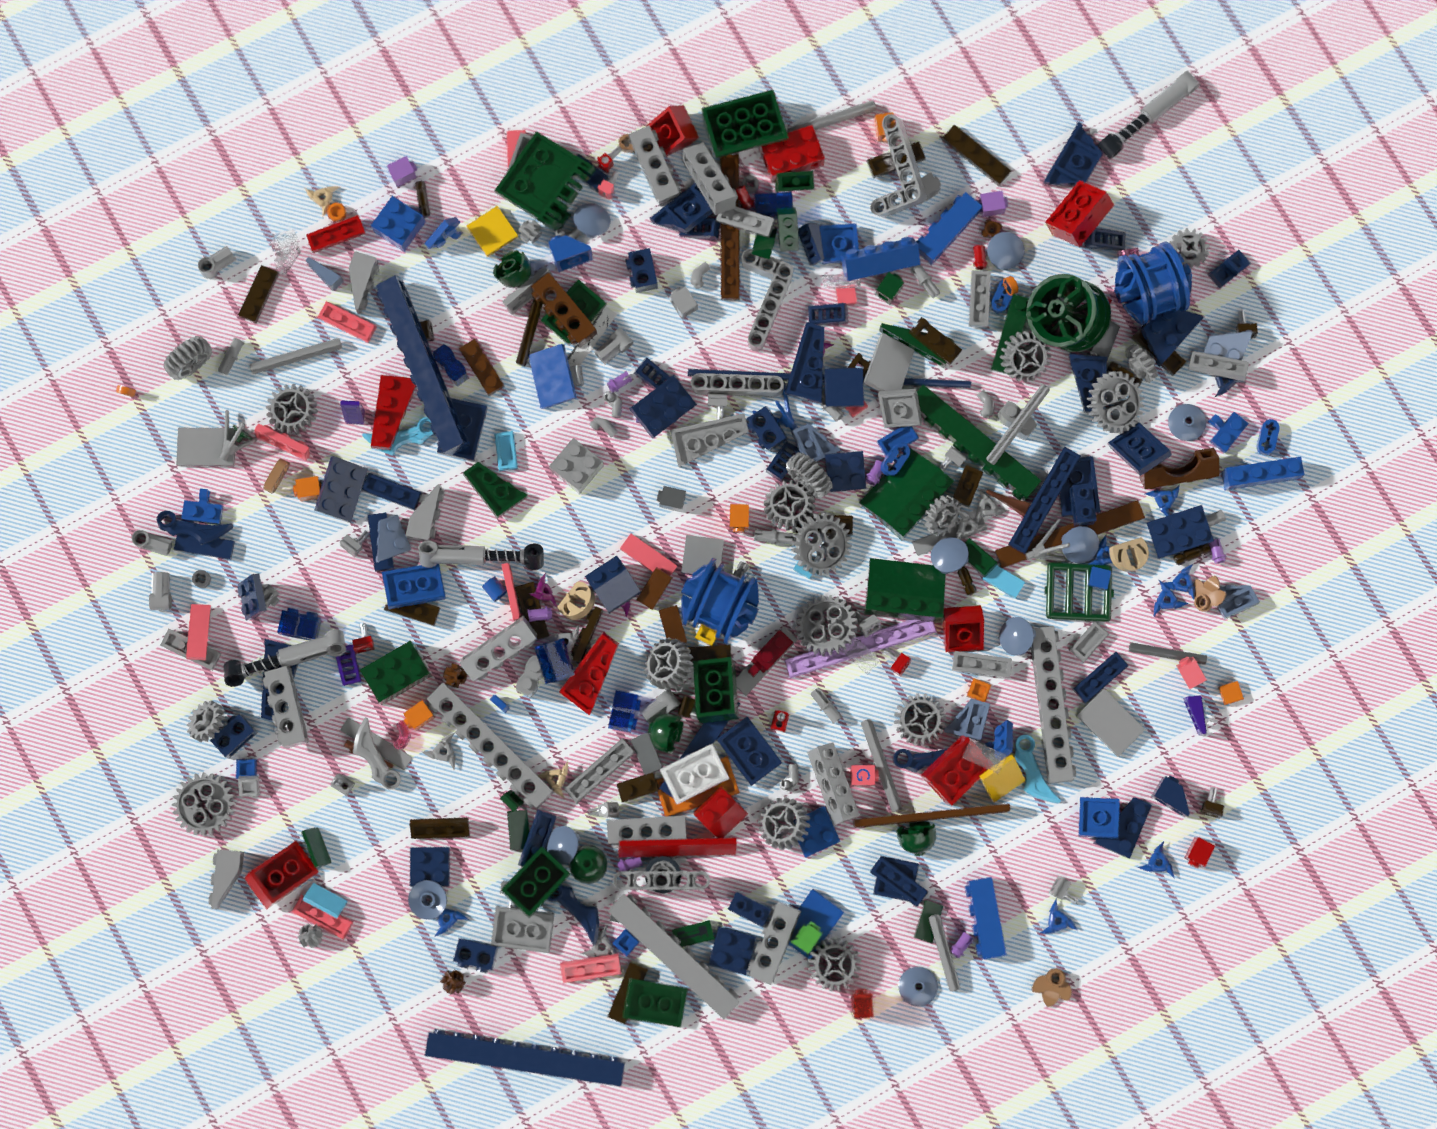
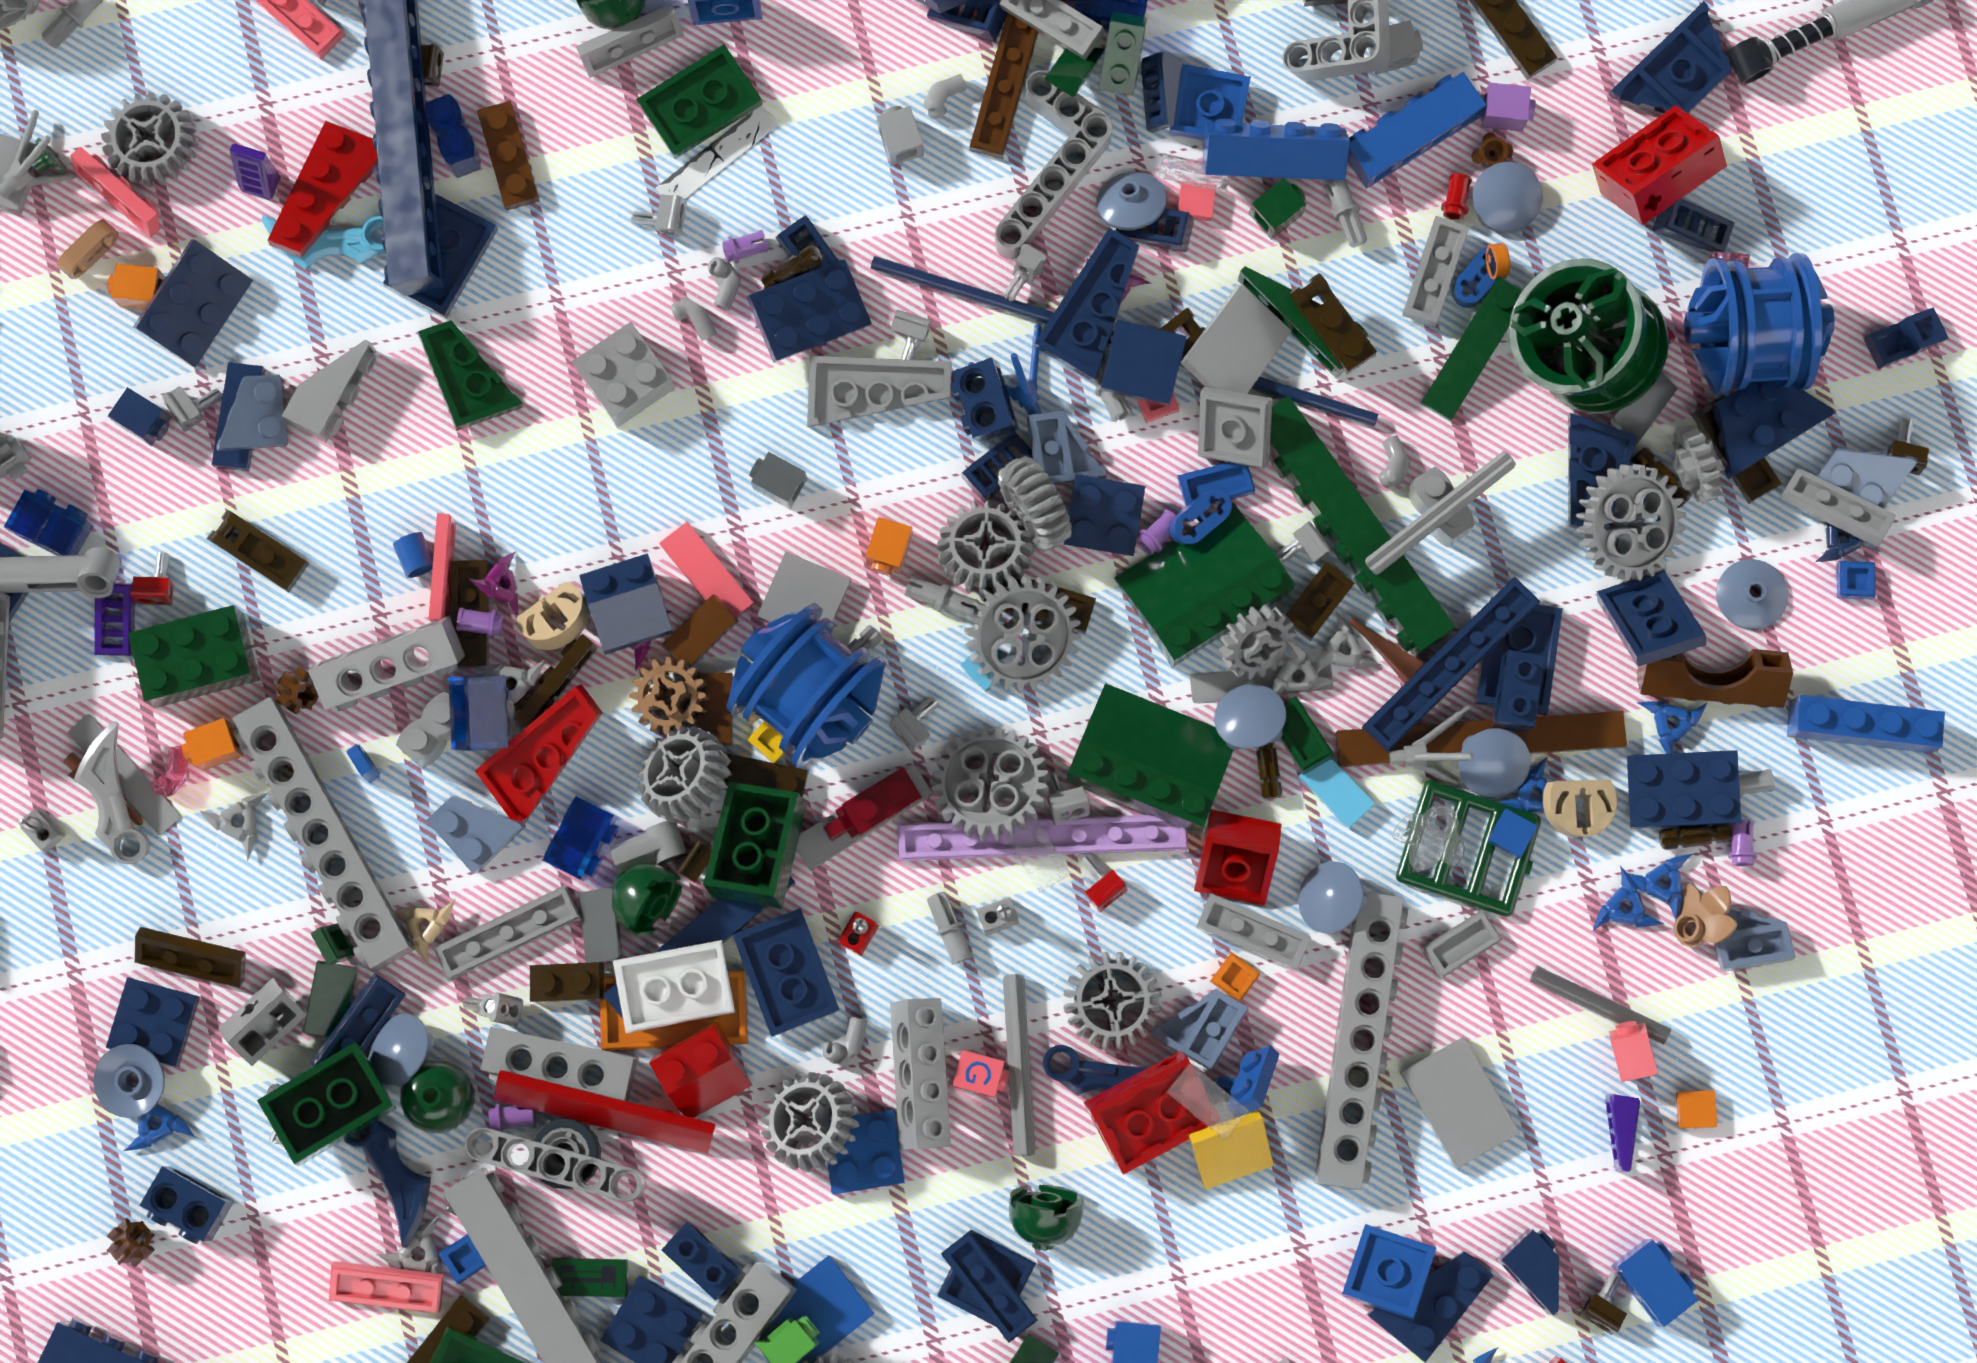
camera: 15 degrees right, 0 degrees up
(295, 356) = (186, 47): light grey axle -> none
(330, 556) = (140, 417): none -> dark blue brick
(391, 491) = (284, 332): dark blue tile -> none
(413, 586) = (271, 509): blue tile -> none
(433, 554) = (321, 463): piece -> none
(488, 850) = (262, 1021): none -> light grey brick
(506, 451) = (508, 315): medium azure tile -> none
(517, 931) = (272, 1185): light grey tile -> none
(529, 333) = (613, 112): dark brown axle -> none
(548, 285) = (664, 40): reddish brown brick -> none
(552, 376) = (628, 204): blue tile -> none
(567, 723) = (473, 831): none -> sand blue wing
(617, 343) = (761, 176): light grey piece -> none
(641, 631) = (654, 701): none -> medium nougat gear
(644, 270) = (847, 59): dark blue brick -> none
(648, 386) = (793, 266): none -> dark brown axle
(729, 379) = (966, 320): light grey beam -> none
(769, 352) = (1026, 268): none -> light grey piece
(775, 607) = (908, 726): none -> light grey piece
(813, 310) = (1135, 210): none -> sand blue dish
(853, 692) = (1005, 913): none -> light grey piece
(934, 815) = (1083, 1182): reddish brown tile -> none
(1021, 362) = (1478, 402): light grey gear -> none
(1035, 782) = (1291, 1174): medium azure piece -> none
(1059, 595) = (1427, 842): none -> clear plate
(1100, 677) = (1464, 1014): dark blue tile -> none
(1180, 242) = (1849, 292): light grey gear -> none
(1227, 431) = (1821, 630): blue plate -> none
(1234, 785) = (1656, 1282): none -> blue brick
(1237, 400) = (1856, 580): none -> blue tile
(1272, 438) = (1900, 665): blue beam -> none

